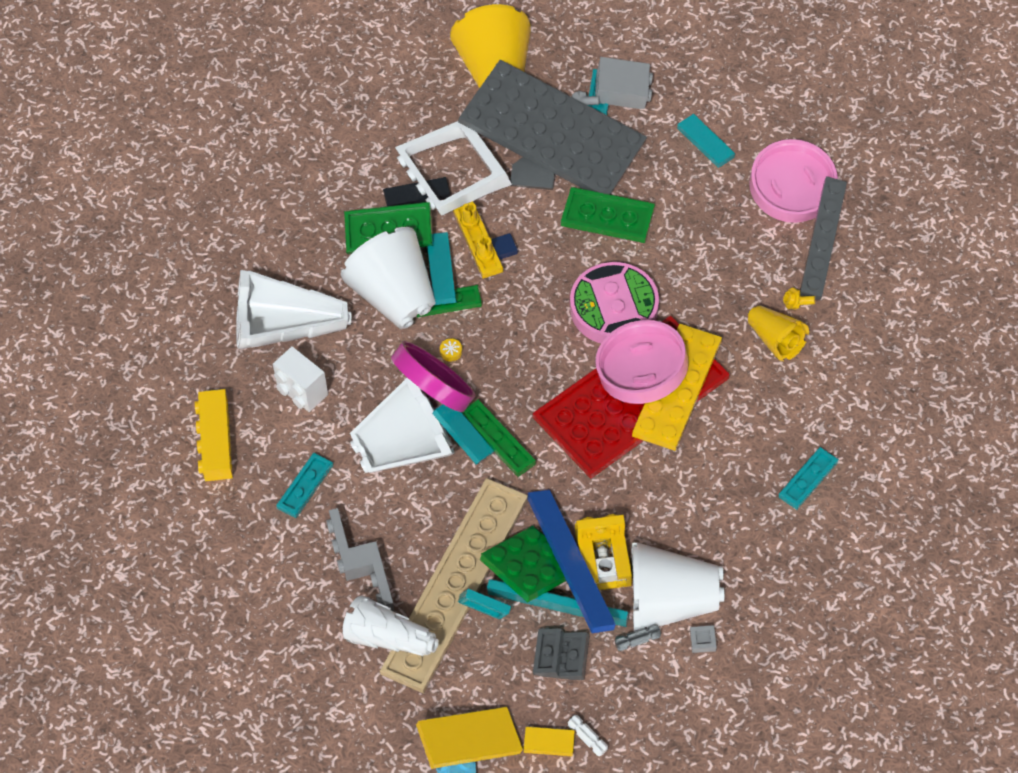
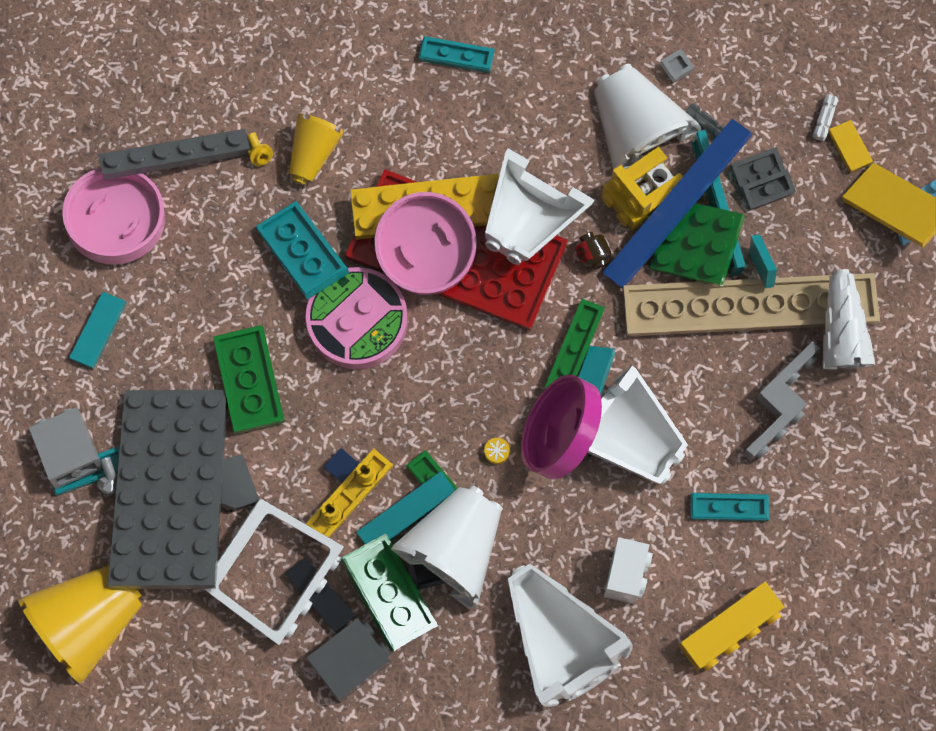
camera: 120 degrees left, 15 degrees up
(357, 185) = (350, 659): none -> dark grey brick
(570, 489) = (593, 251): none -> dark brown head
(629, 444) = (528, 211): none -> white cone
(692, 288) = (302, 250): none -> teal tile

